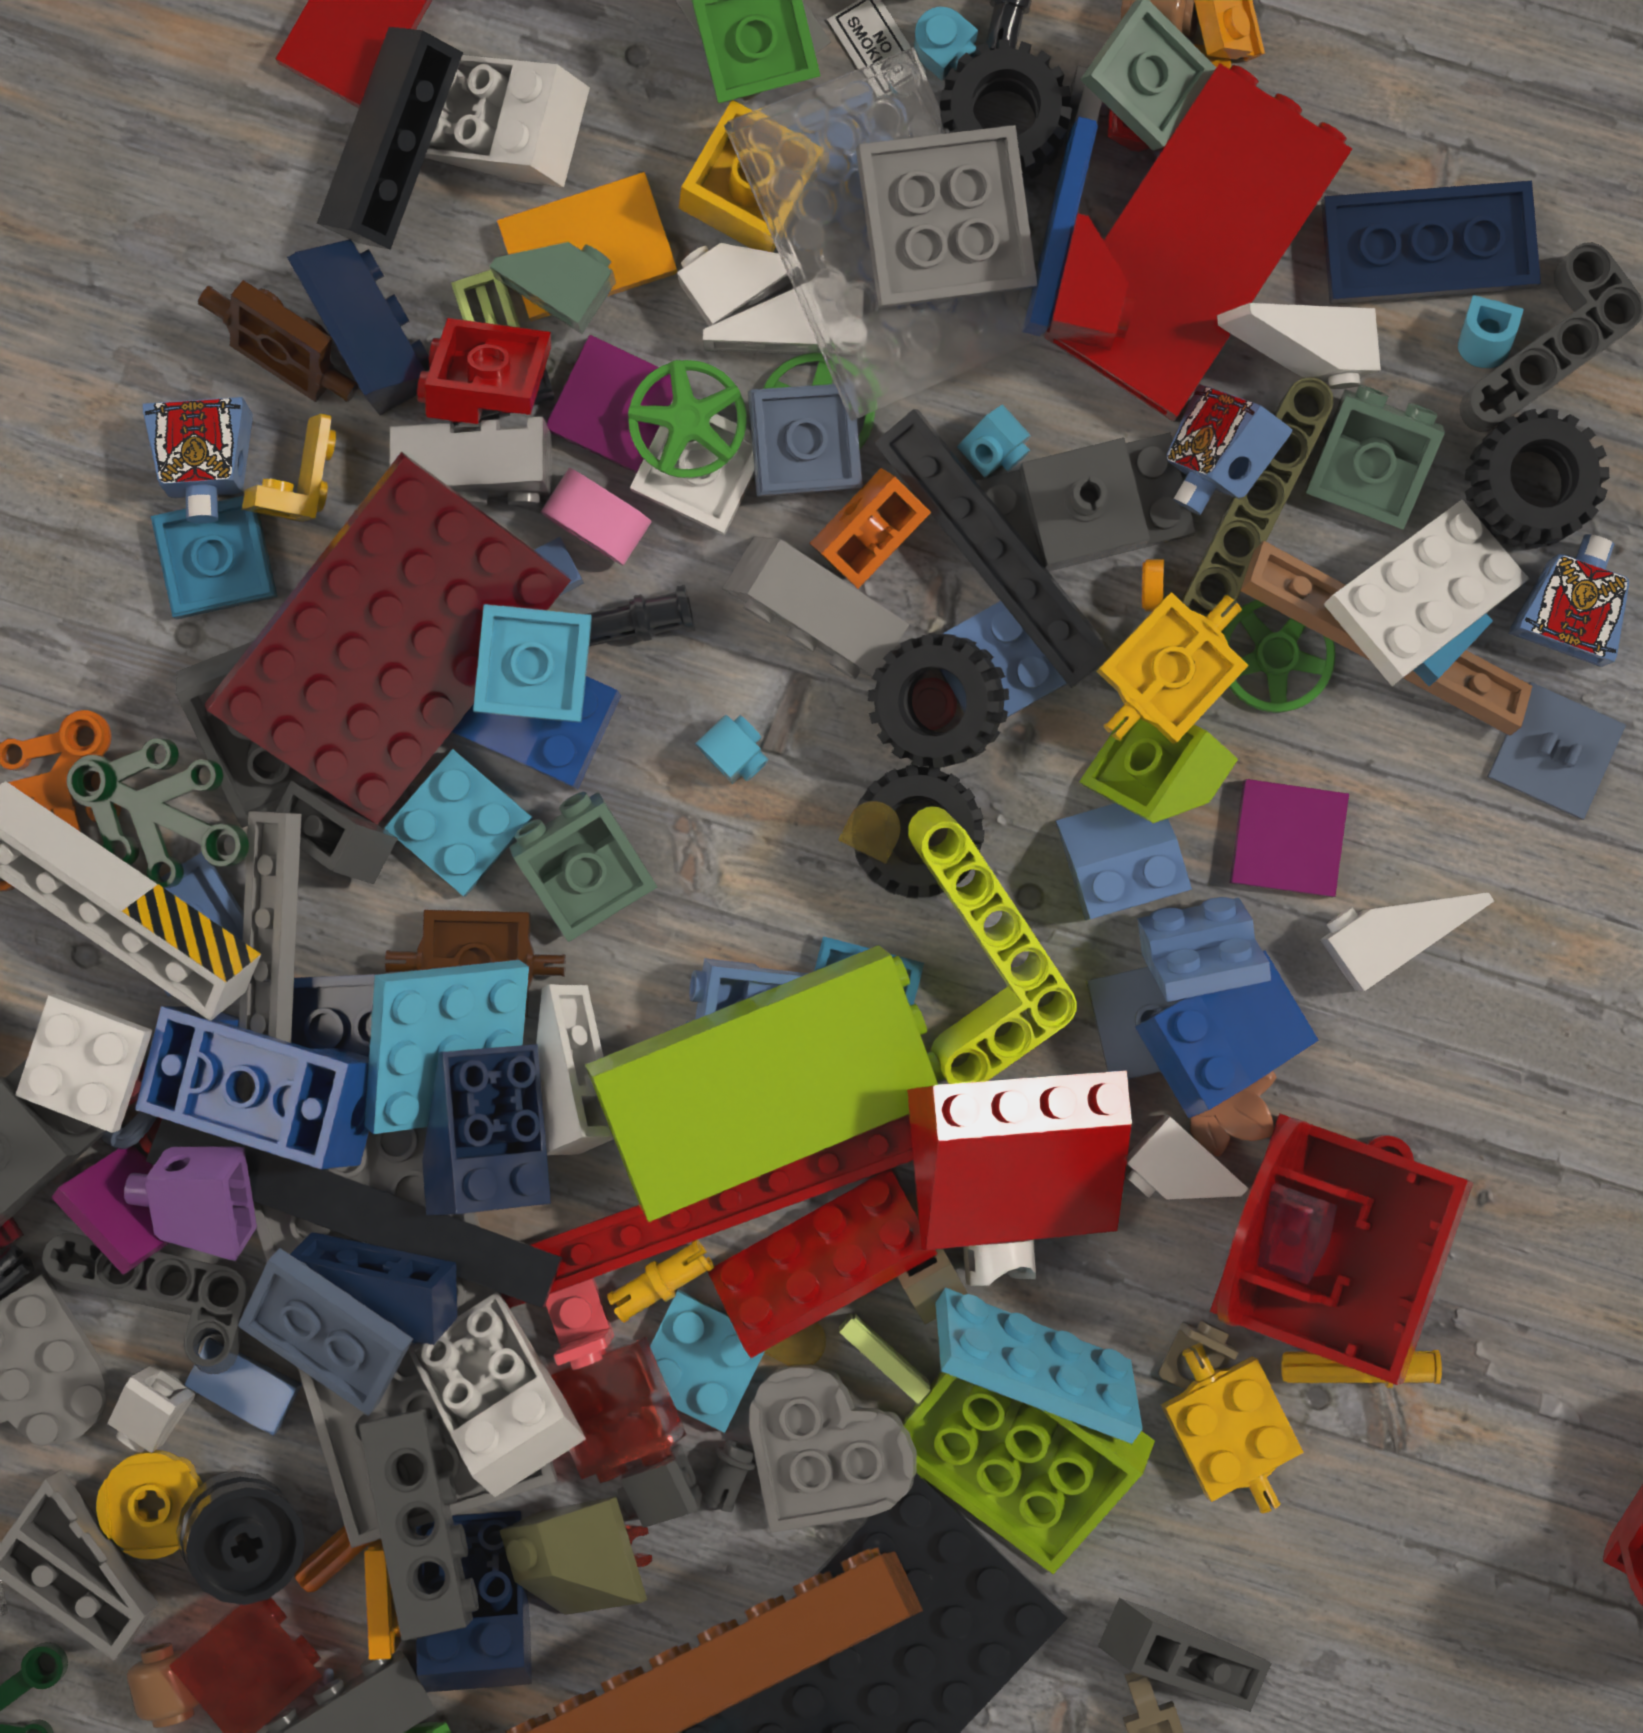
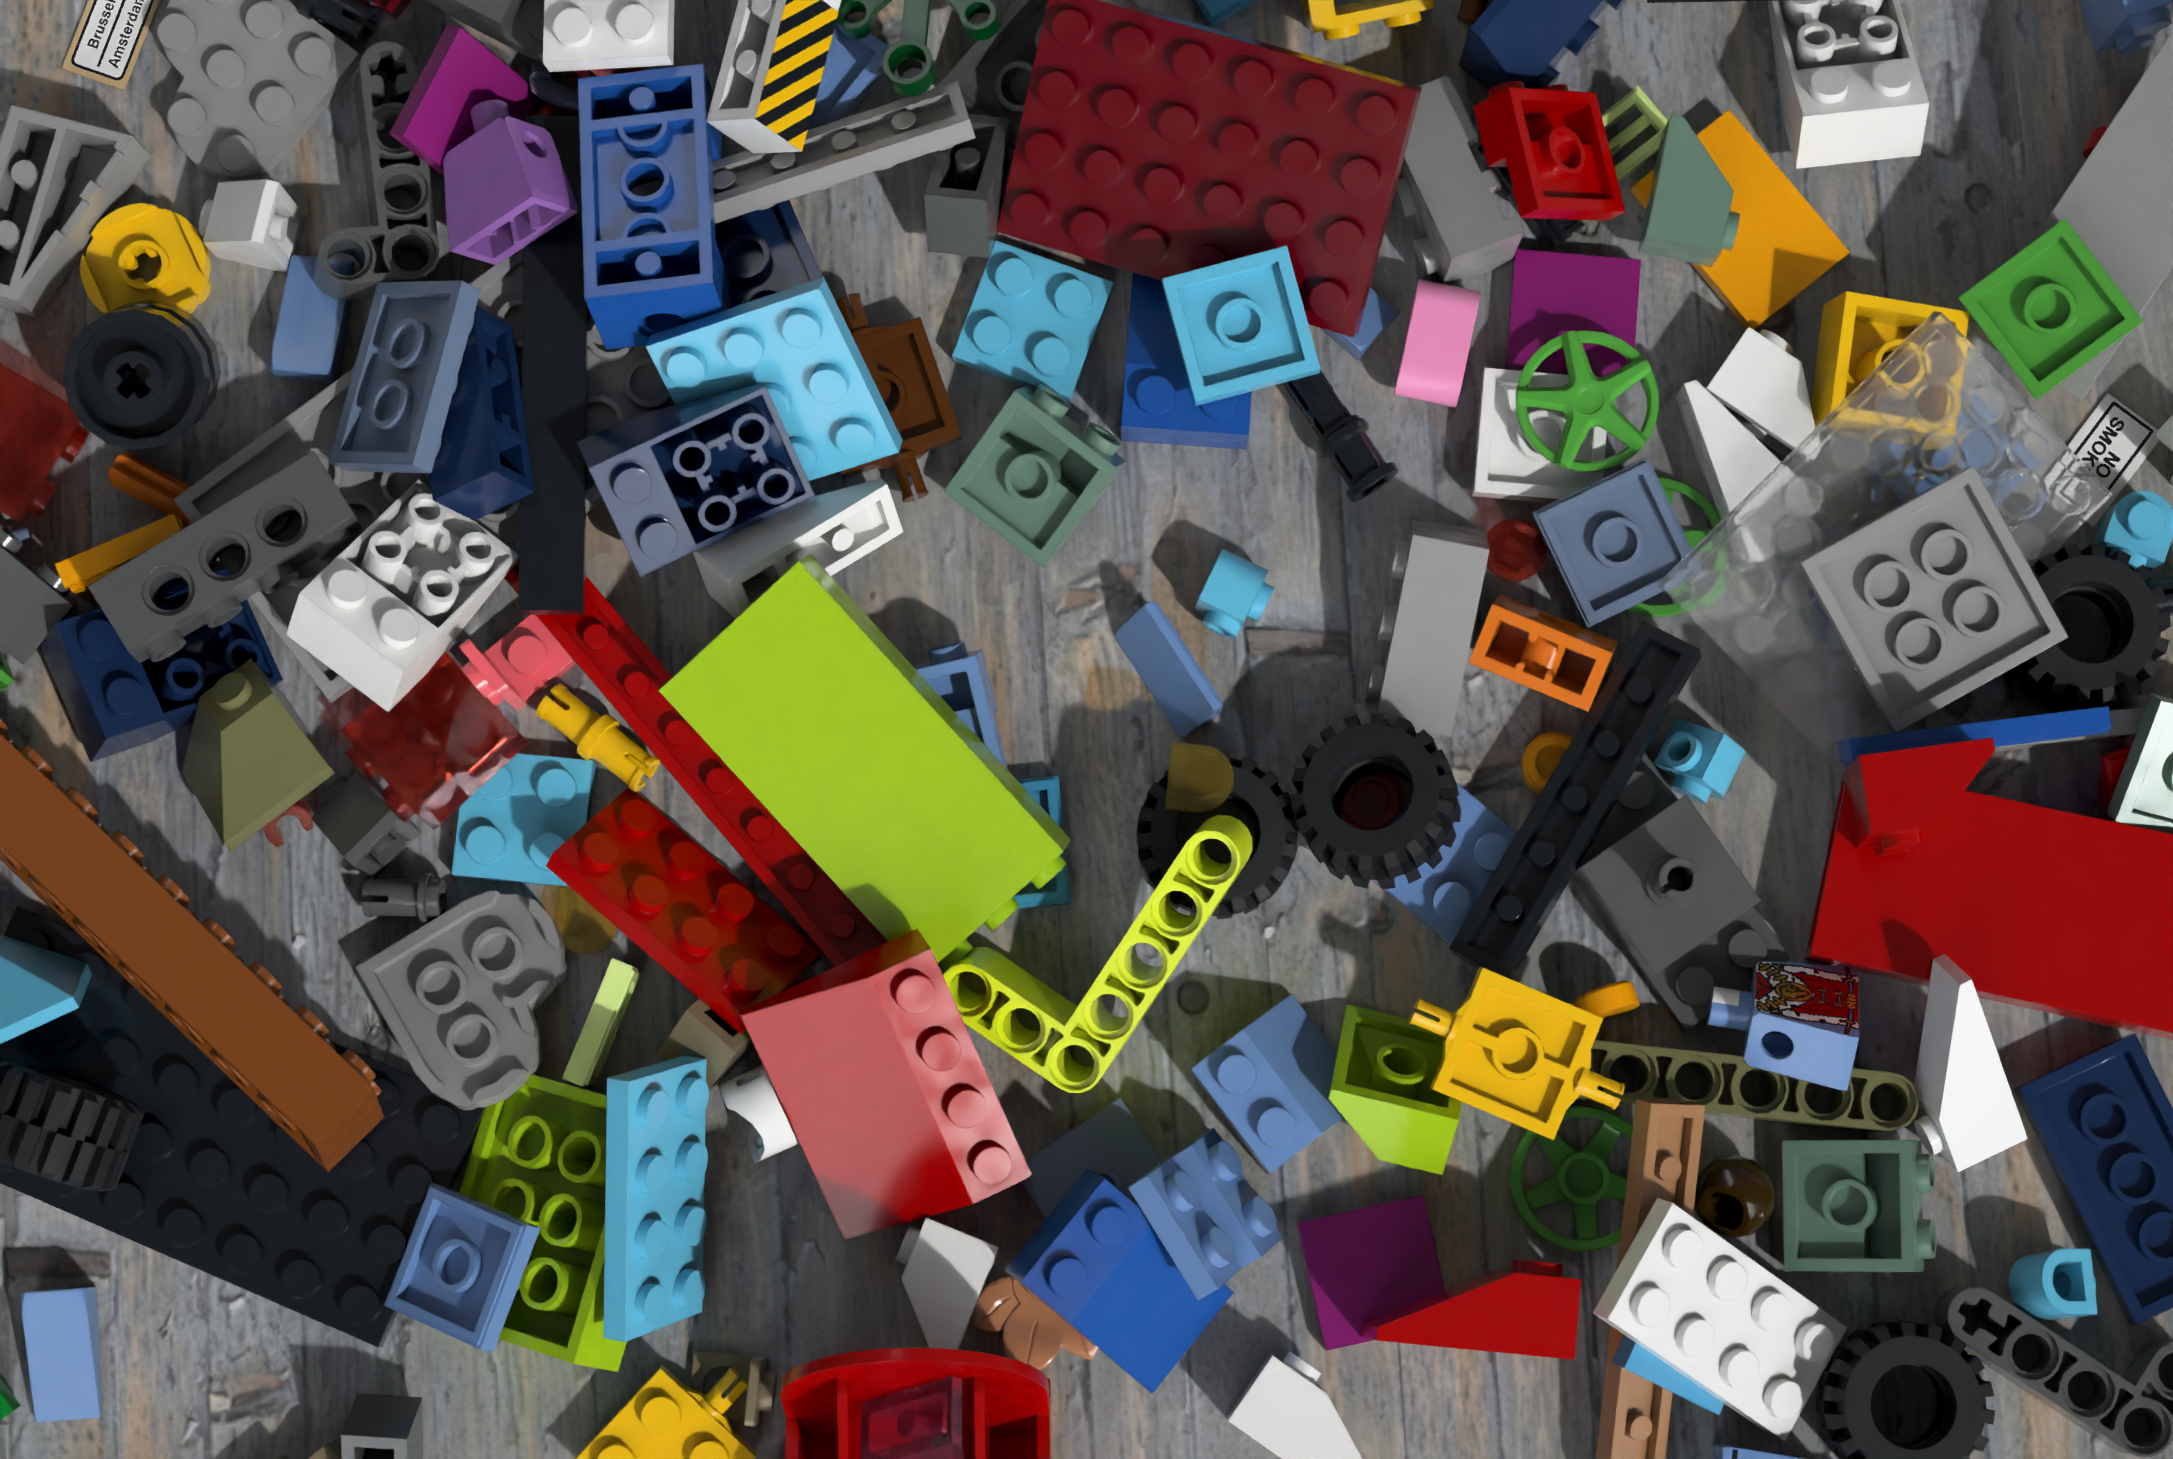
camera: 70 degrees right, 5 degrees down
(773, 820) = (1169, 669): none -> medium blue slope
(779, 518) = (1515, 550): none -> clear red plate
(948, 559) = (1542, 758): none -> light orange tile
(1033, 1532) = (462, 1267): none -> medium blue plate
(1335, 544) = (1734, 1196): none -> dark brown piece
(1357, 762) = (1499, 1311): none -> red slope

